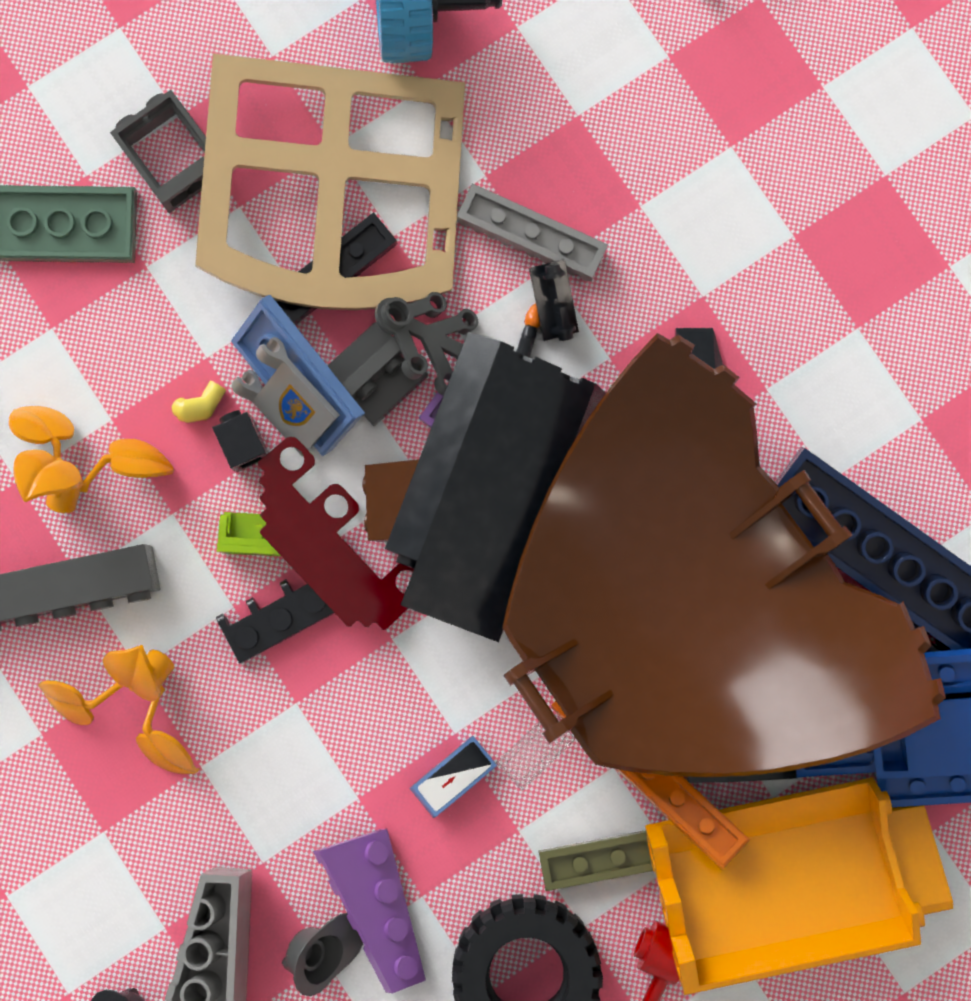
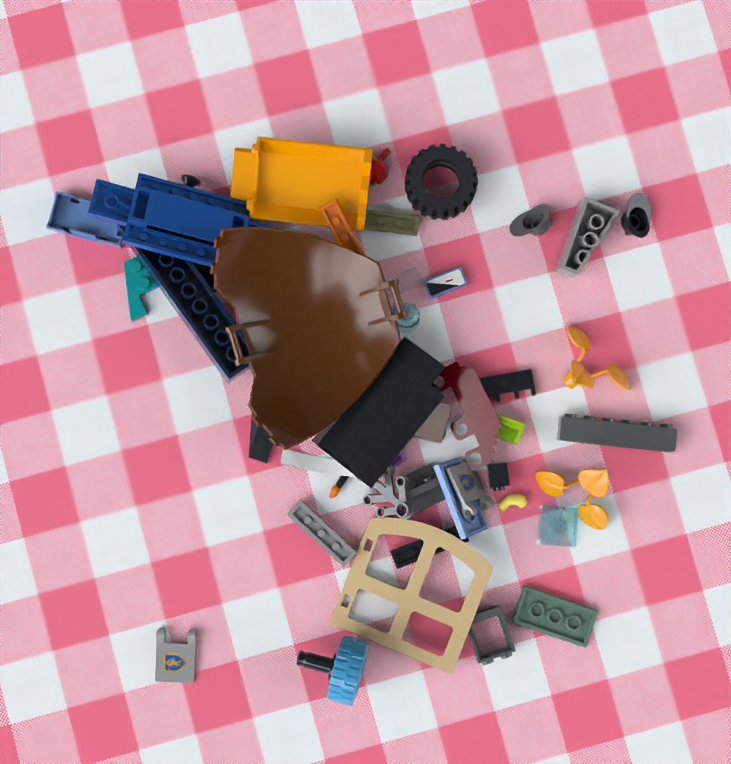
camera: 160 degrees left, 0 degrees up
(102, 385) = (557, 526): none -> clear light blue slope
(372, 894) = (501, 243): medium lavender wing -> none
(496, 690) = (409, 323): none -> clear light blue hair
(554, 300) = (322, 494): black hinge -> none
(591, 355) = (313, 463): none -> white sticker

